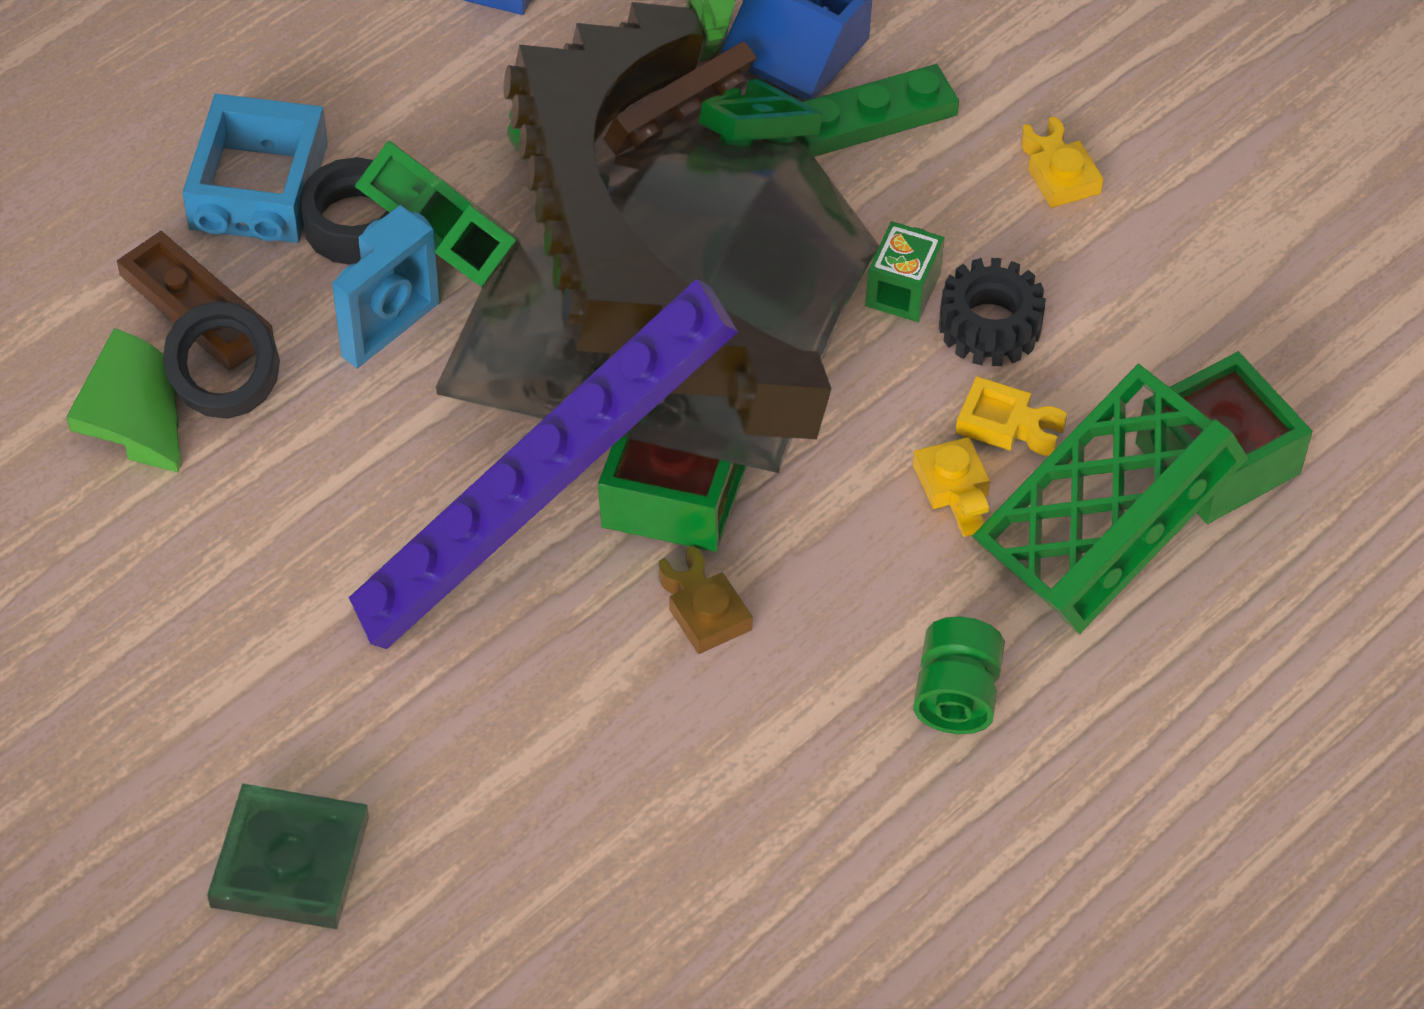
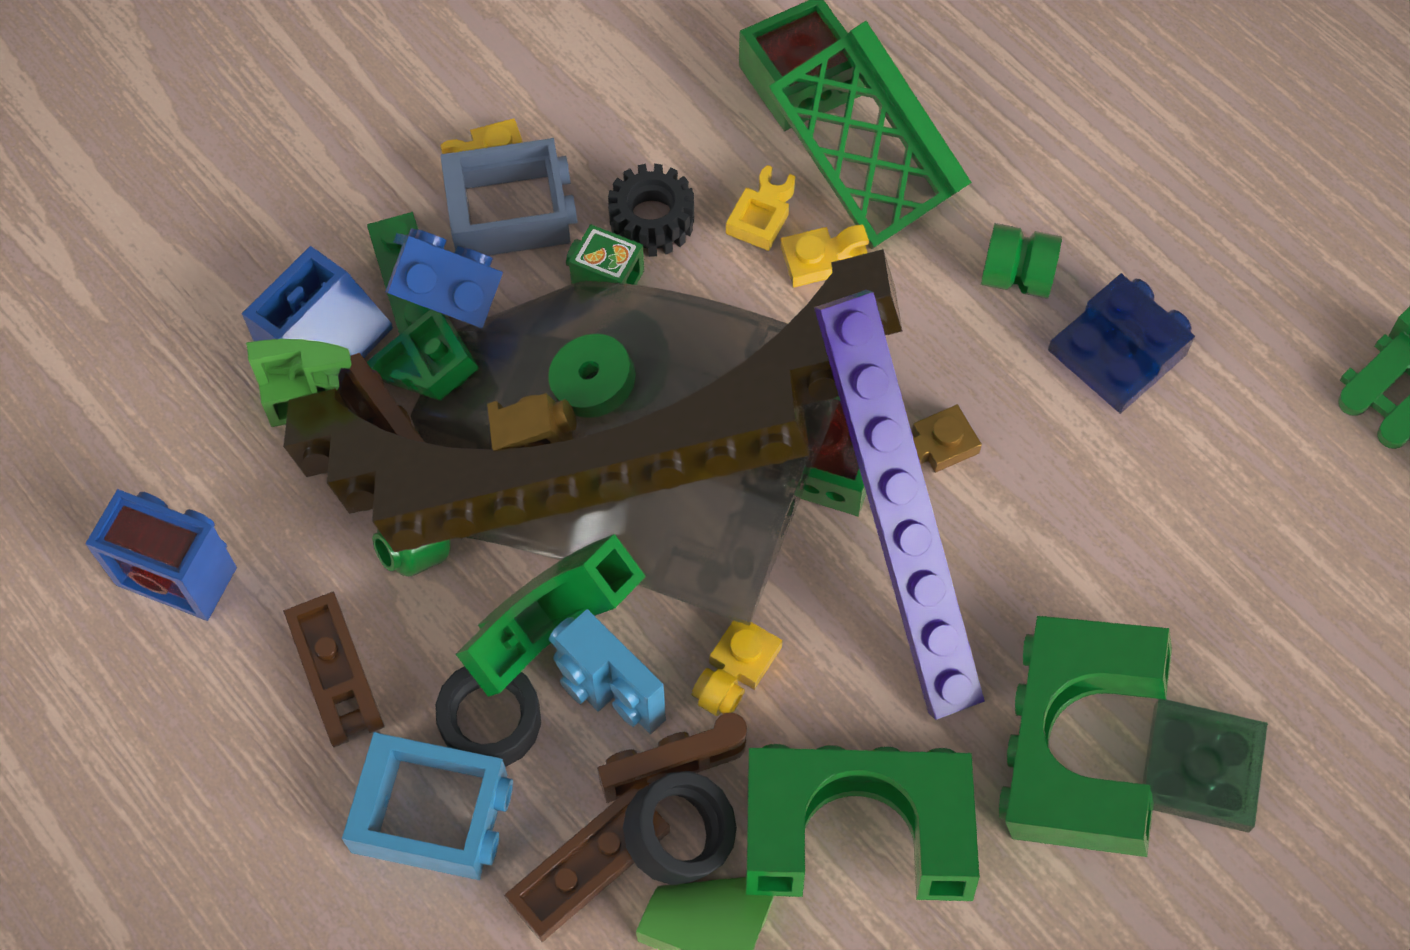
camera: 85 degrees left, 10 degrees up
(245, 582) = (925, 788): none -> green arch
(258, 684) = (1066, 664): none -> green arch
(304, 362) = (674, 754): none -> reddish brown plate
(404, 88) = (332, 667): none -> reddish brown plate
(423, 426) = (740, 656): none -> yellow plate
(628, 154) = (530, 422): none -> pearl gold brick
(699, 201) = (587, 355): none -> green piece
(854, 104) = (444, 281): none -> blue bracket
(860, 799) = (1123, 342): none -> clear blue plate
(998, 131) = (506, 165): none -> sand blue window

